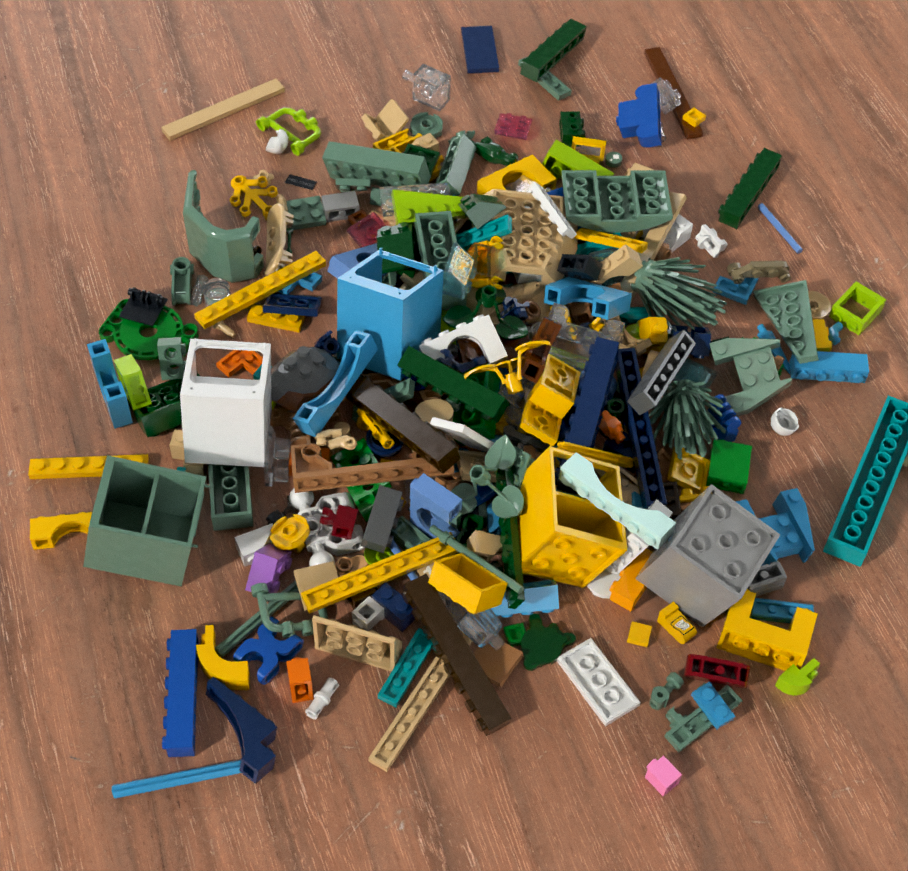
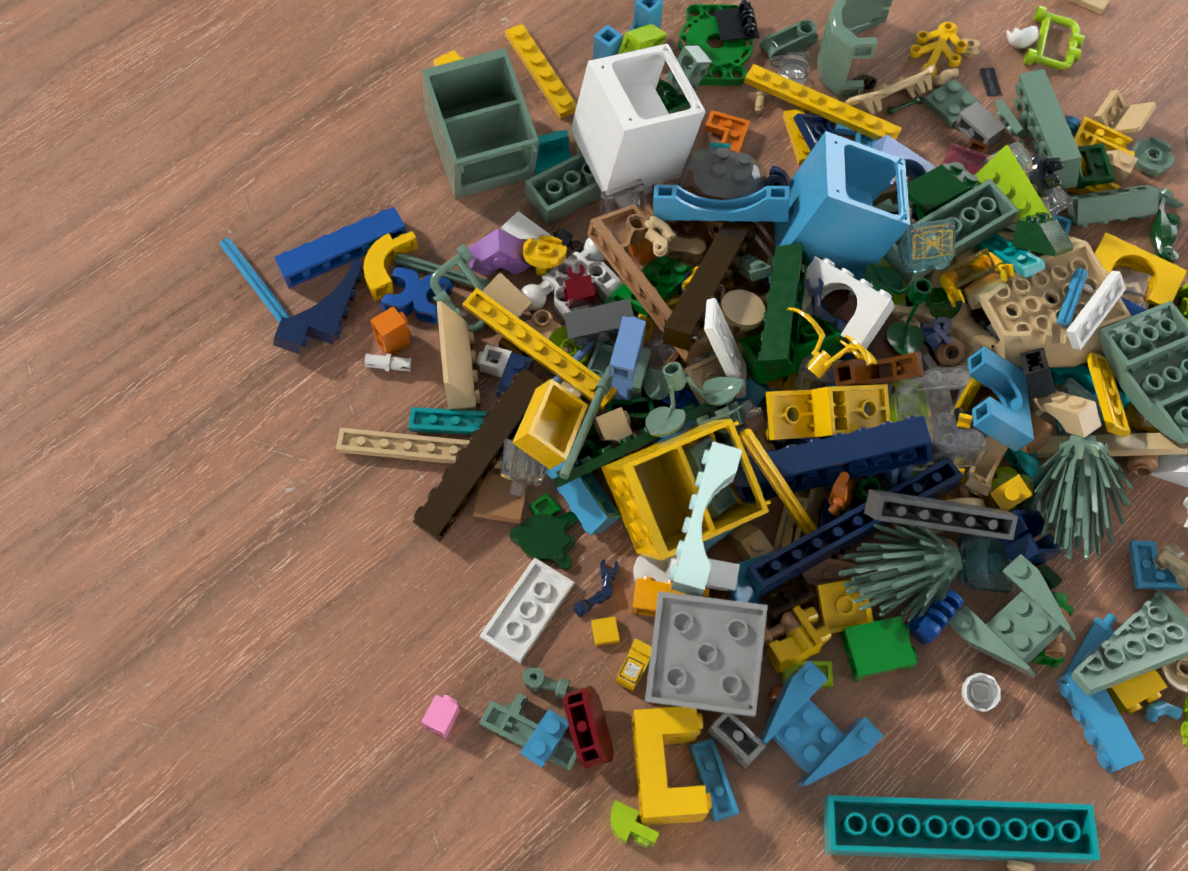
camera: 65 degrees right, 10 degrees up
(420, 180) = (1043, 173): none -> black plate
(535, 218) = (1072, 297): none -> dark azure axle
(608, 620) = (608, 577): none -> dark blue piece

